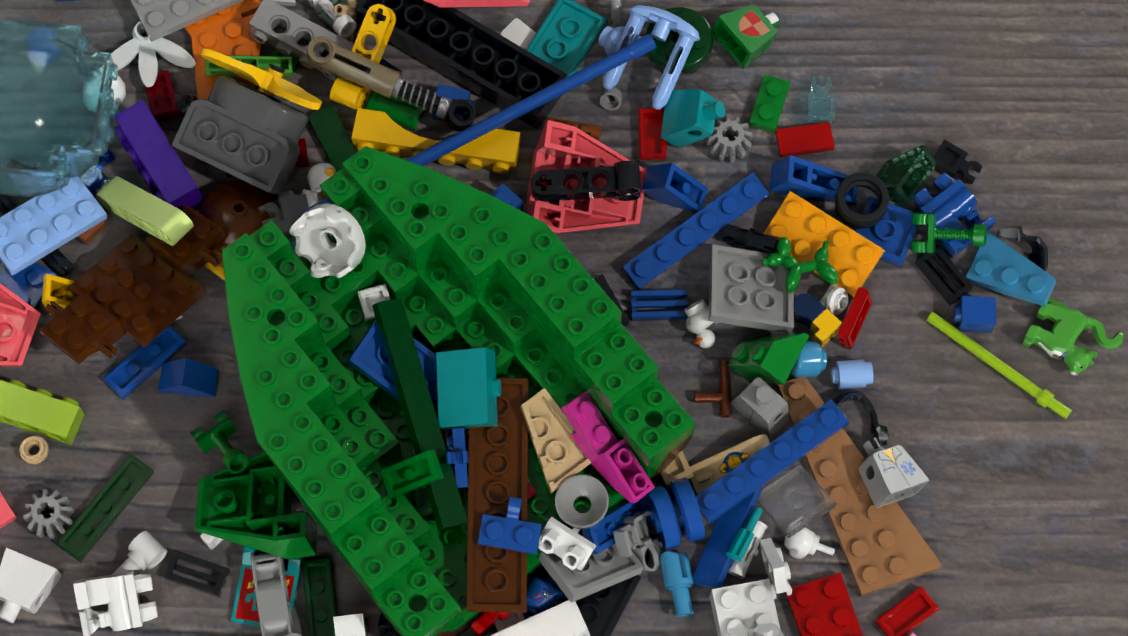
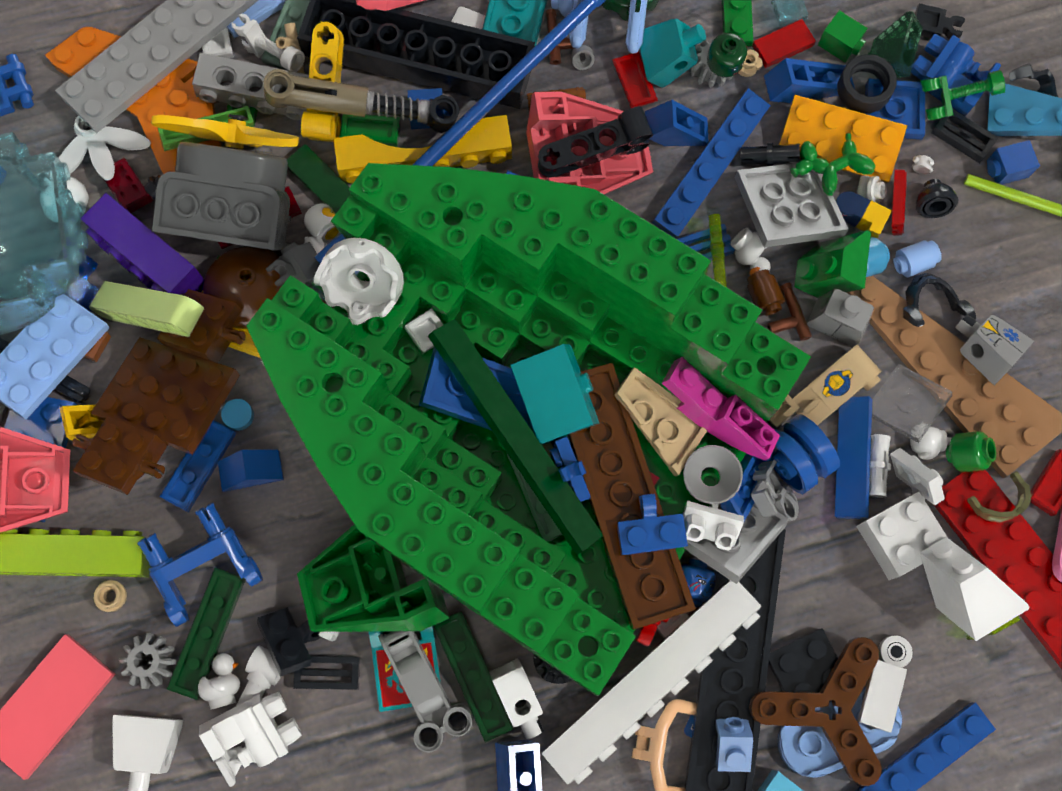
camera: 20 degrees left, 5 degrees up
(89, 440) = (166, 568): none -> blue connector
(104, 556) = (221, 689): none -> white animal
(171, 534) = (286, 640): none -> black plate
(193, 328) = (237, 414): none -> dark azure tile
(234, 459) = (328, 542): green bar -> none
(412, 474) = (531, 505): green plate -> none
(587, 88) = (555, 56): none -> copper piece
(669, 313) = (717, 249): none -> clear neon green piece
(678, 580) = (823, 521): dark azure arm -> none
(700, 363) = (765, 292): none -> reddish brown brick
(736, 137) = (726, 55): none -> dark green head
(744, 537) = (876, 457): teal axle -> none
(759, 153) = (750, 69): none -> tan plate
(771, 461) = (878, 368): blue plate -> none
(834, 561) = (971, 451): none -> green head
(843, 626) = (1023, 502): none -> olive helmet
(860, 150) = (843, 37): none -> green brick
(890, 326) = (936, 199): none -> black brick
(892, 290) = (922, 164): none -> white piece

